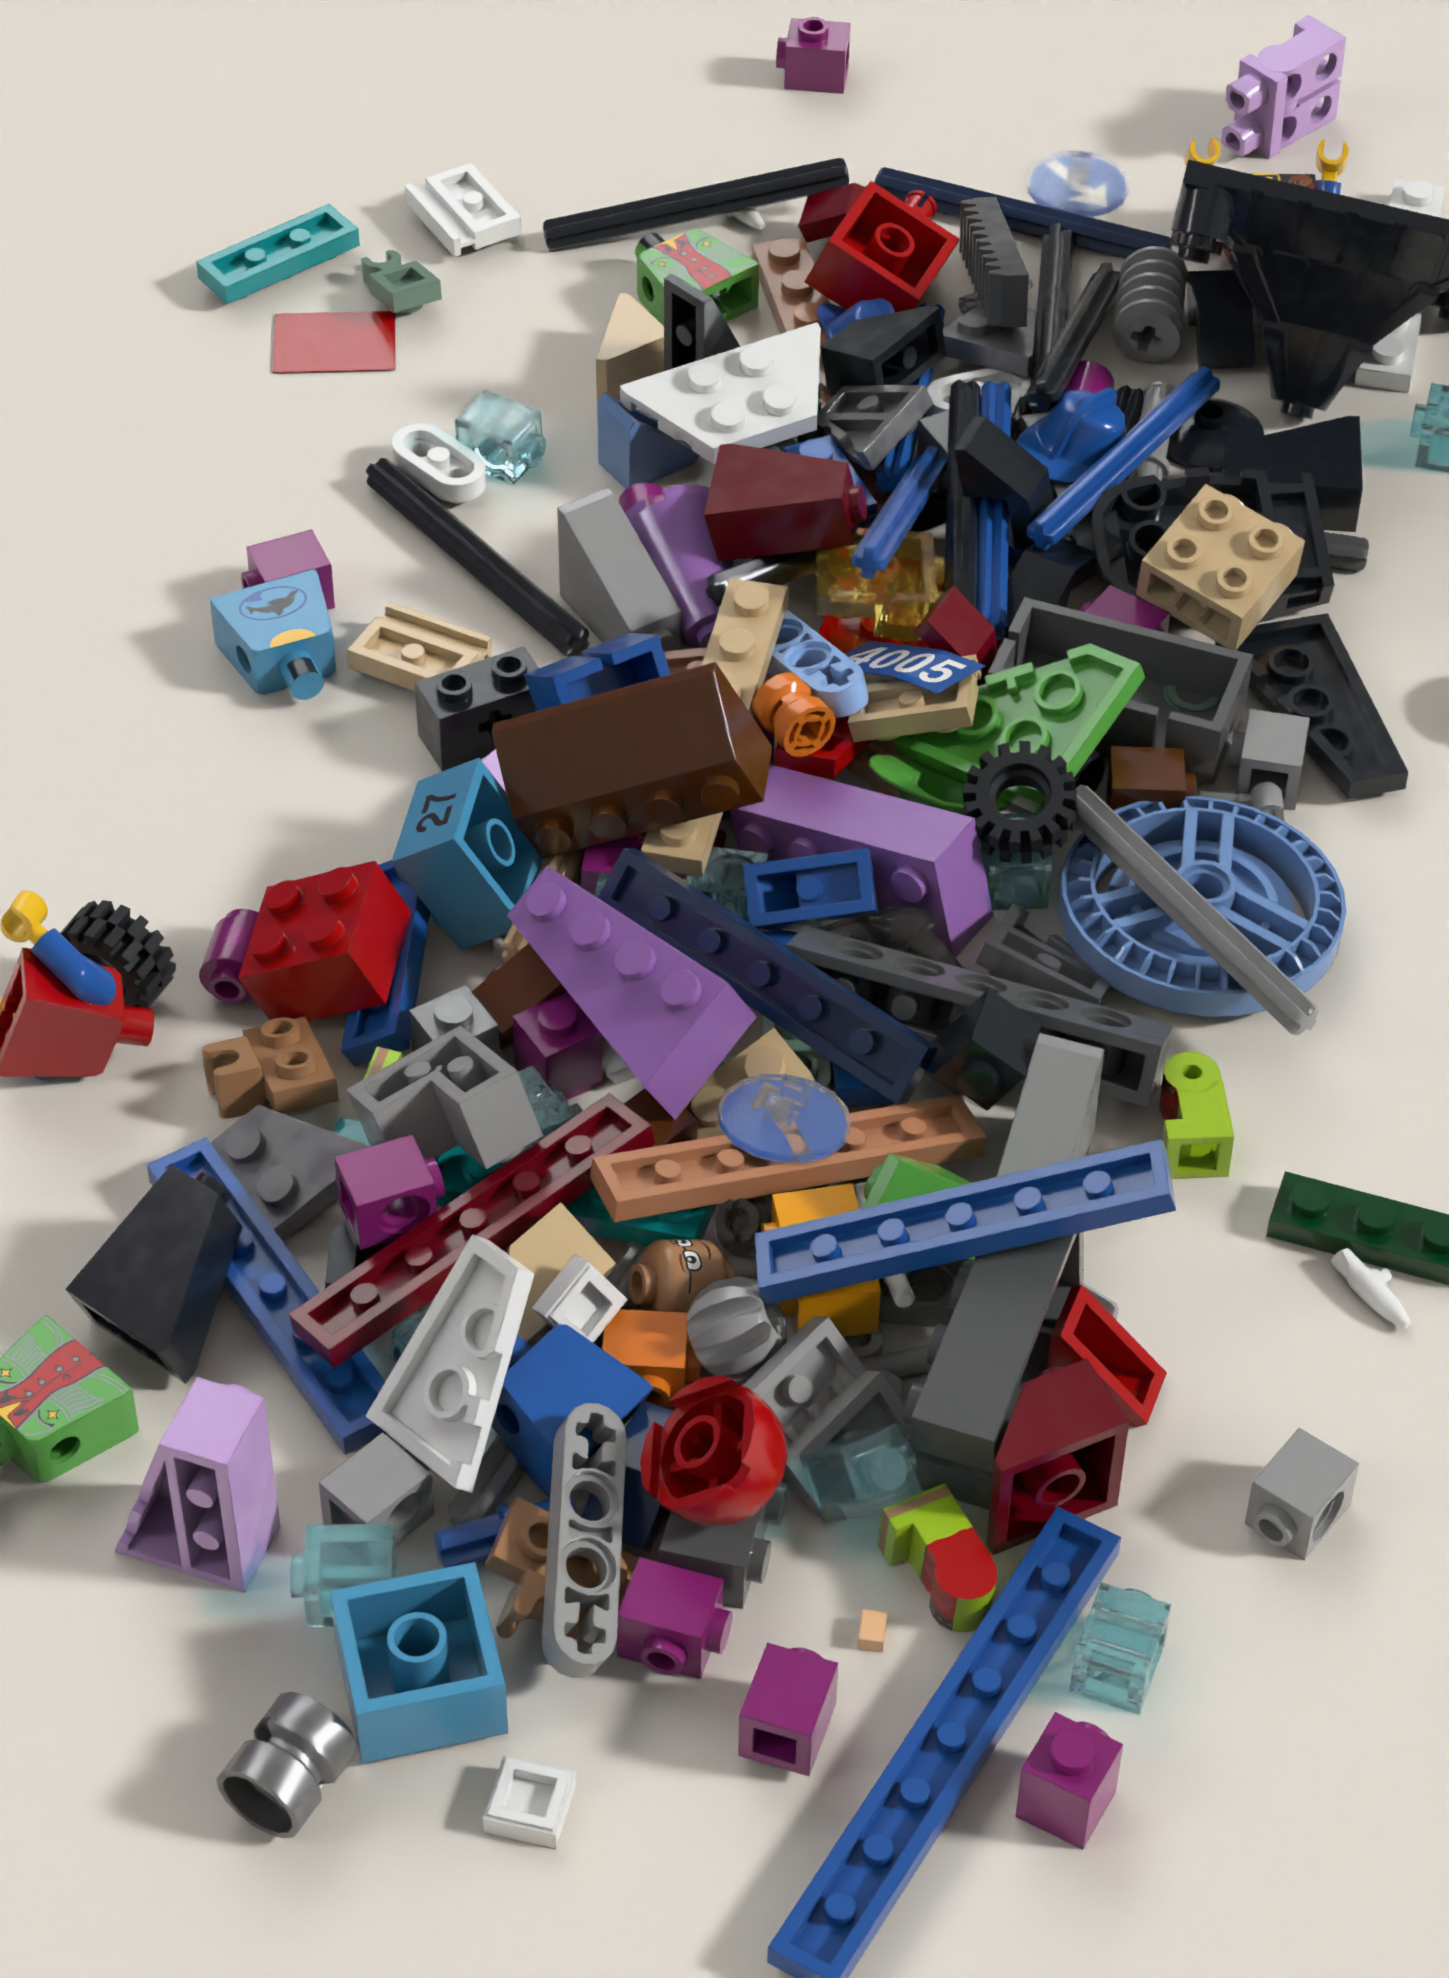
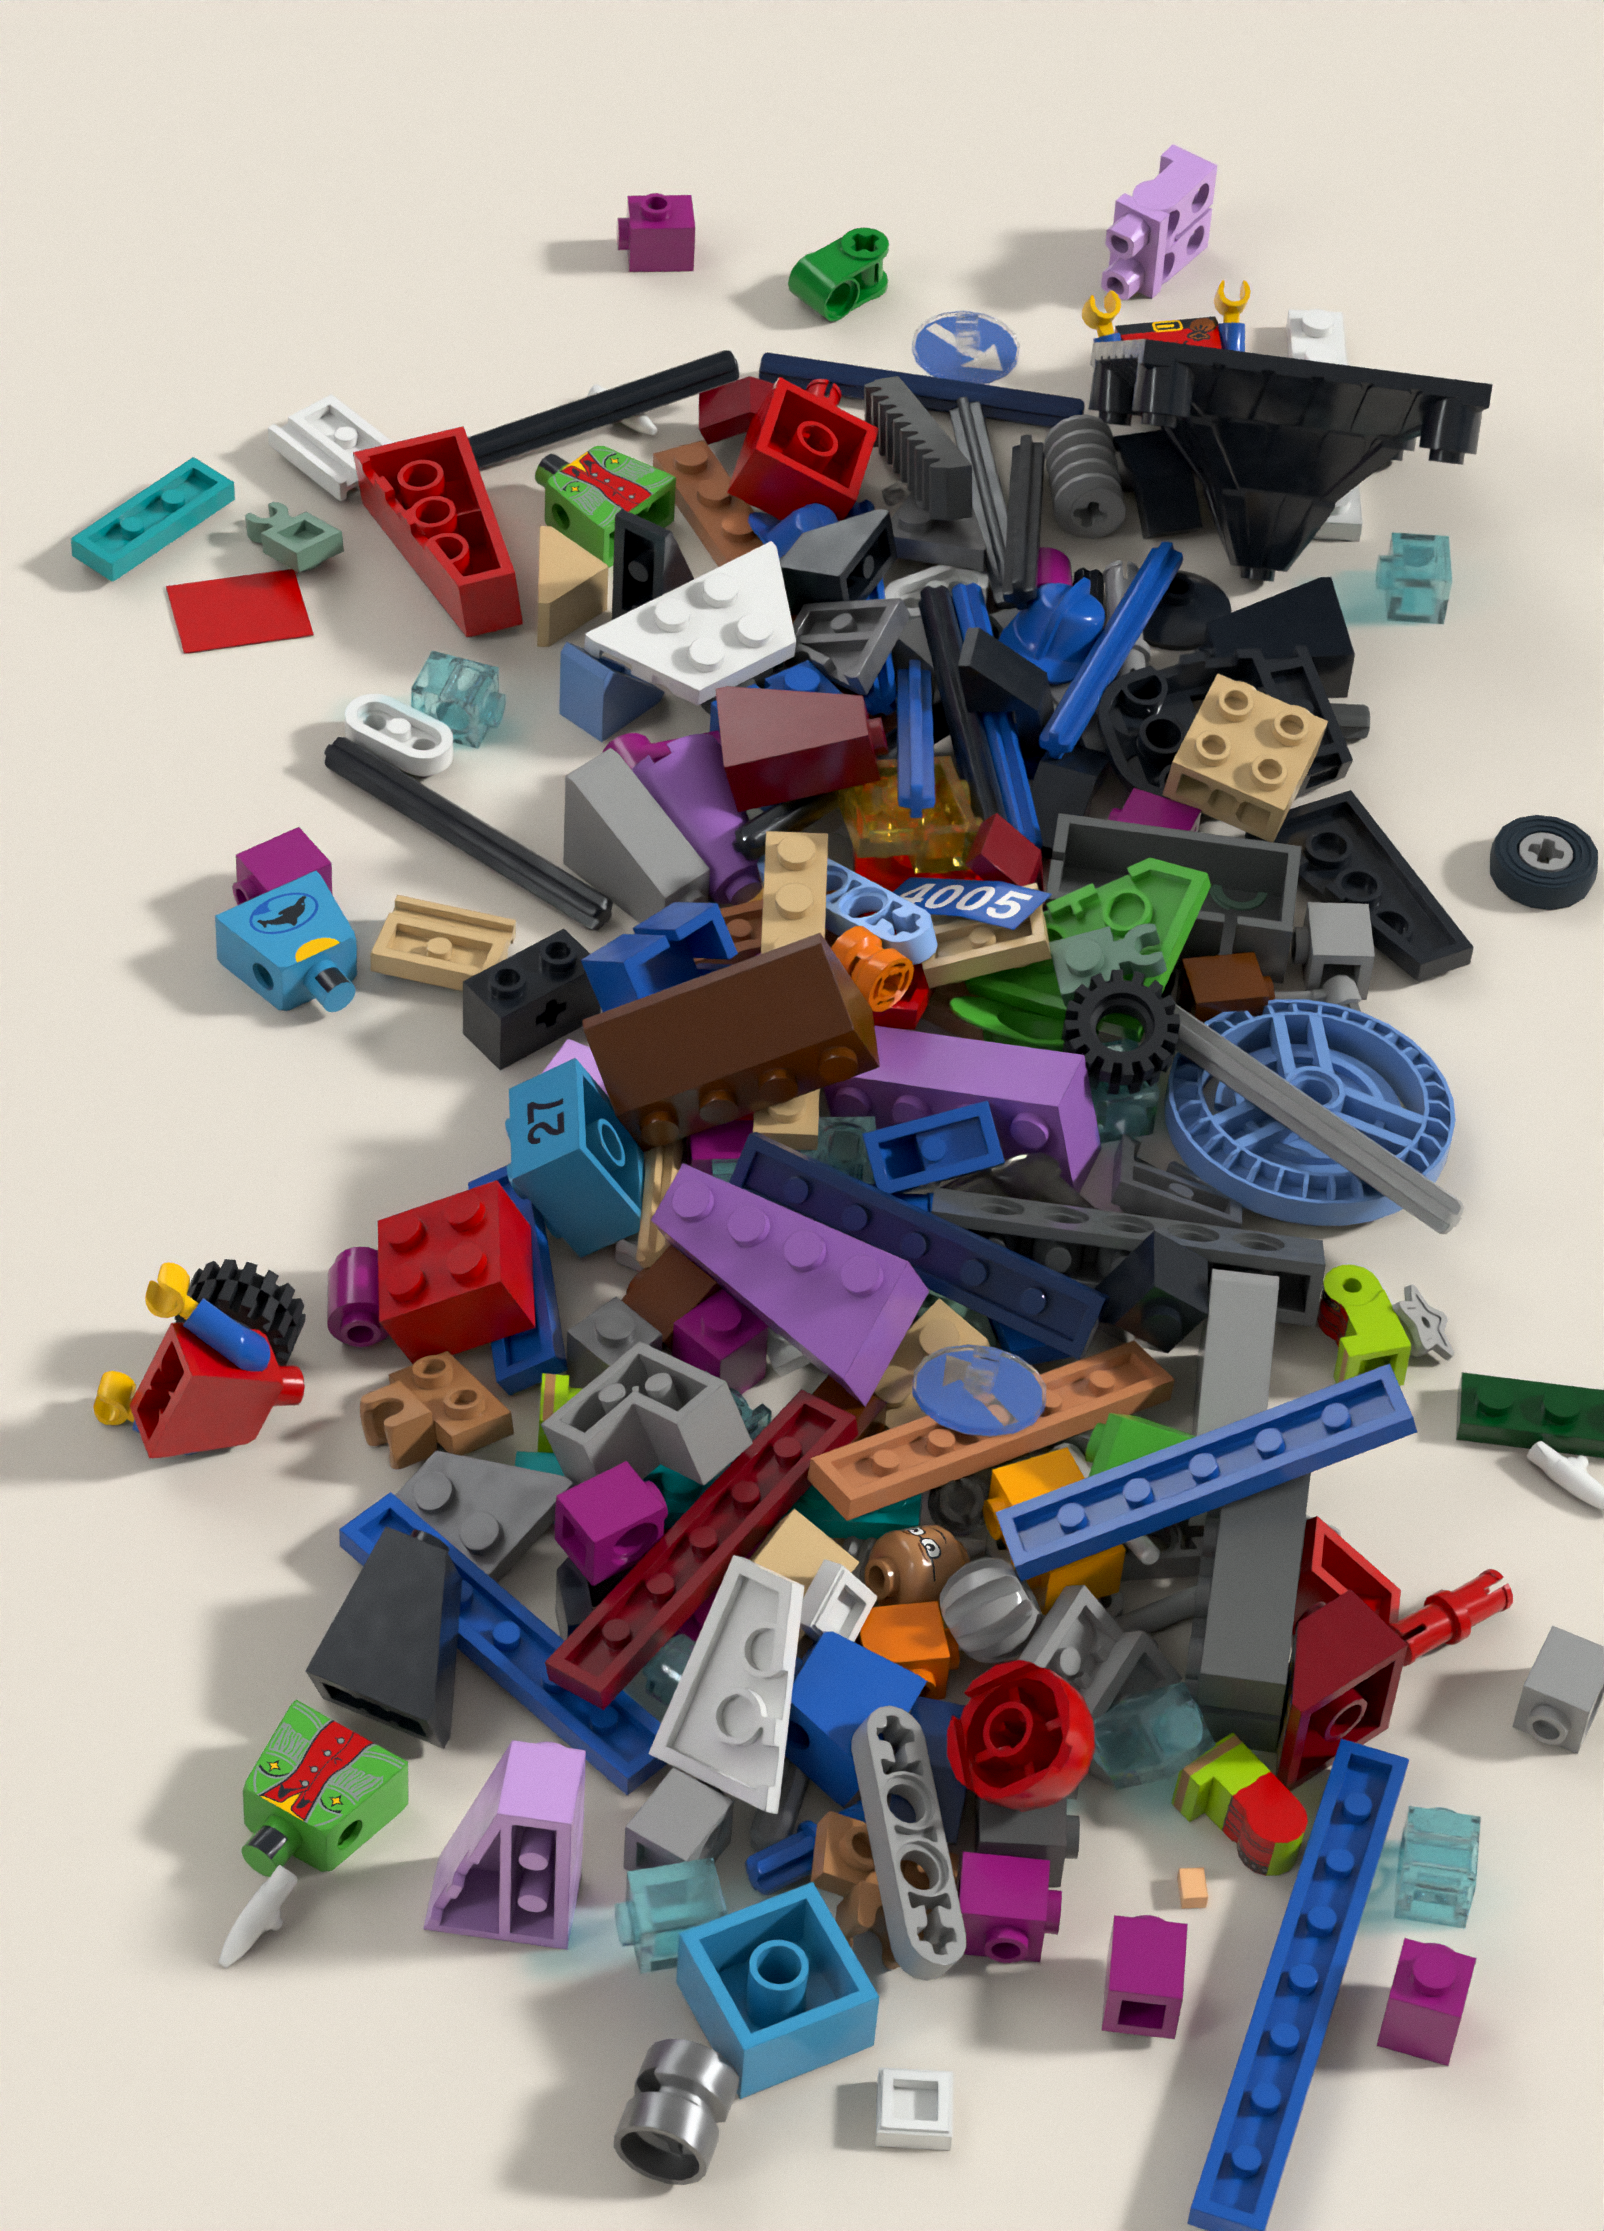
camera: 15 degrees left, 0 degrees up
(535, 278) = (442, 522): none -> red wedge
(974, 108) = (842, 273): none -> green piece
(1023, 723) = (1096, 952): none -> sand green plate
(1202, 1405) = (1450, 1615): none -> red pin
(1256, 1120) = (1423, 1325): none -> light grey plate

